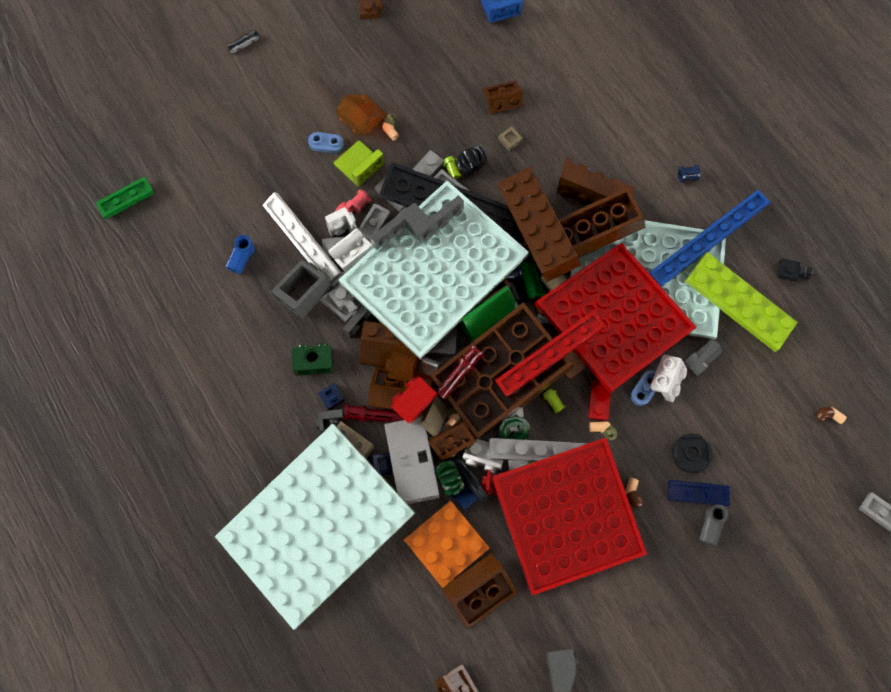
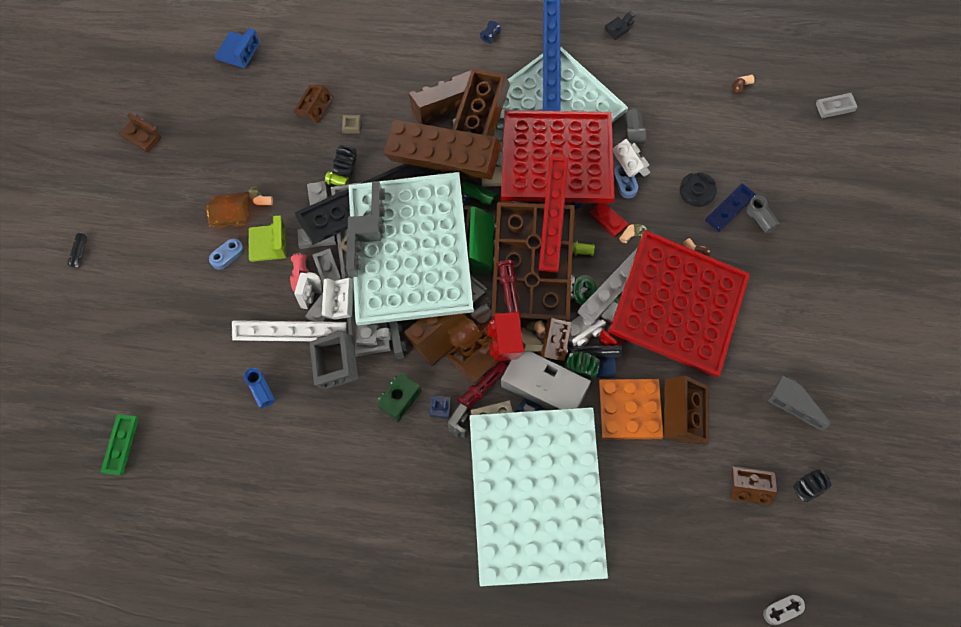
camera: 45 degrees left, 5 degrees down
(741, 302) = (615, 72): lime plate -> none

